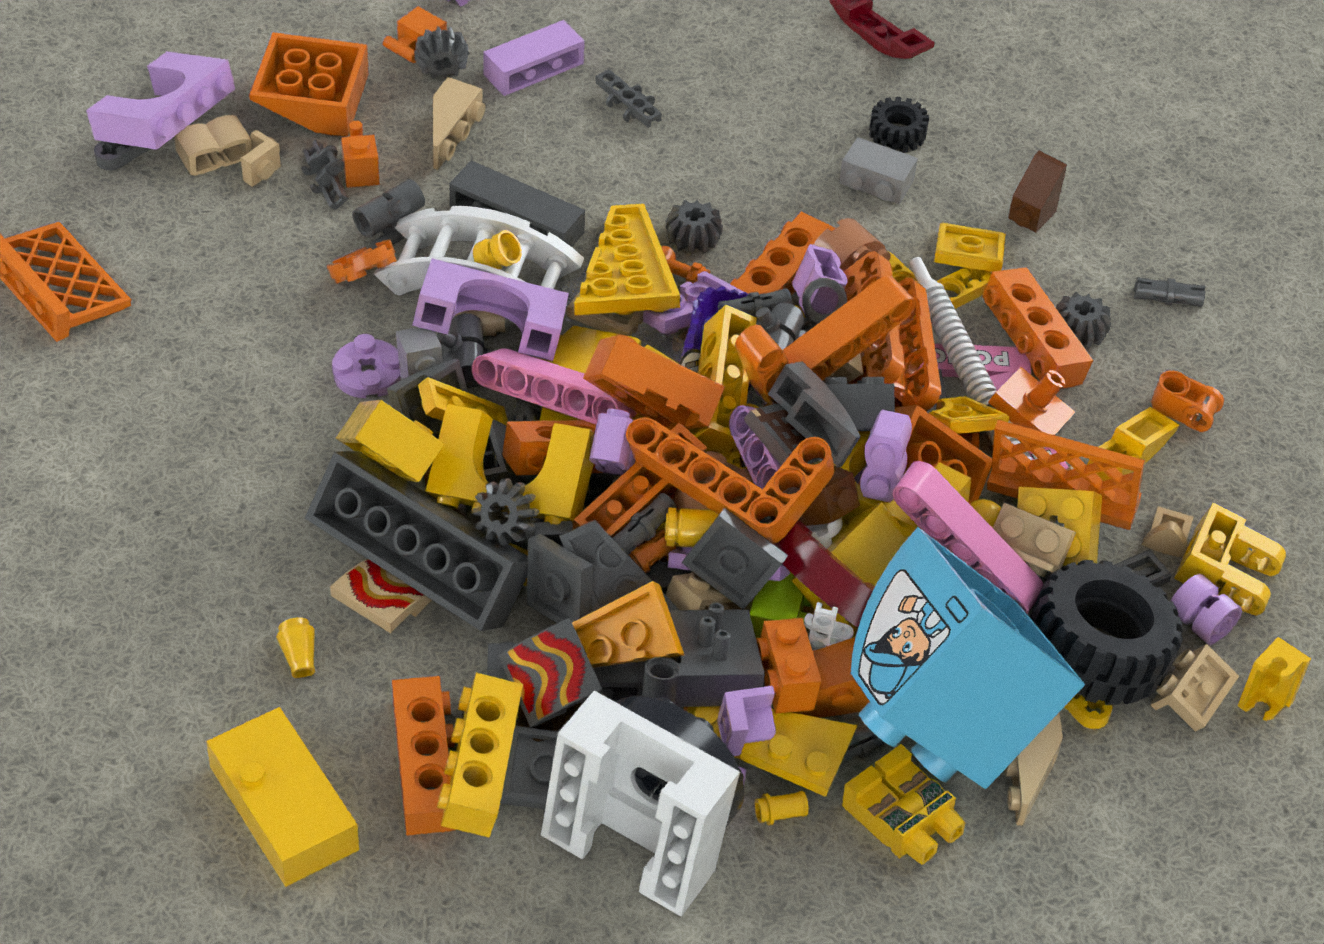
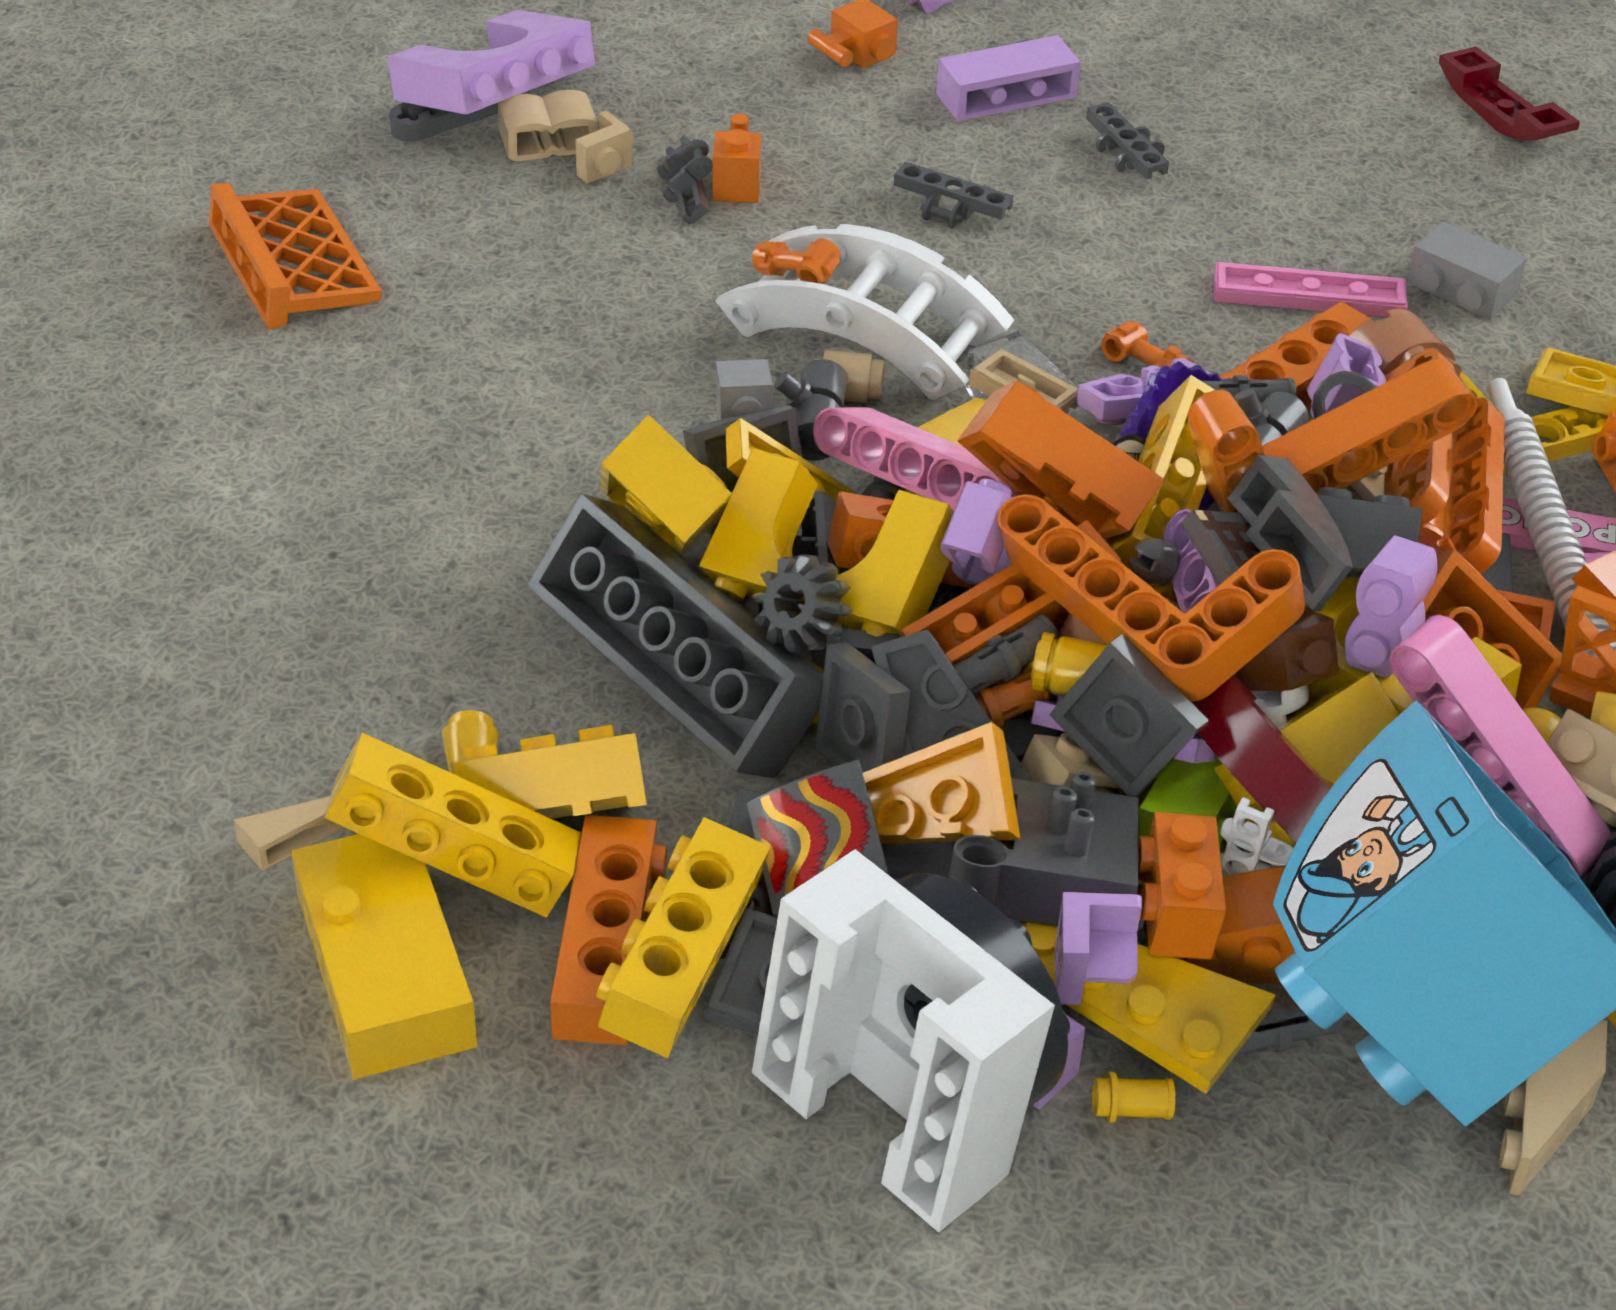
camera: 15 degrees right, 5 degrees down
(188, 725) = (274, 833): none -> tan piece
(310, 705) = (453, 825): none -> yellow brick
(312, 81) = (699, 65): orange slope -> none
(354, 264) = (711, 278): orange plate -> none
(360, 659) = (564, 778): none -> yellow wedge
(366, 351) = (673, 396): lavender plate -> none
(378, 595) = (600, 694): slope -> none
(386, 210) = (746, 226): dark grey pin -> none
(441, 52) = (882, 54): dark grey gear -> none
(441, 243) = (813, 265): none -> orange bar
(454, 112) = (878, 130): tan slope -> none
(457, 289) = (809, 321): lavender arch -> none
(495, 191) = (964, 248): dark grey brick -> none
(498, 251) = (885, 283): yellow wheel -> none
(536, 162) = (934, 184): none -> dark grey piece
(627, 268) = (1068, 336): yellow wing -> none
(694, 226) = (1182, 303): dark grey gear -> none
(728, 443) = (1155, 560): none -> dark grey hinge
(777, 199) = (1307, 289): none -> bright pink tile
(899, 112) = (1510, 216): black tyre -> none
(903, 806) = (1327, 1129): yellow hips -> none
(967, 415) = (1533, 590): yellow tile -> none

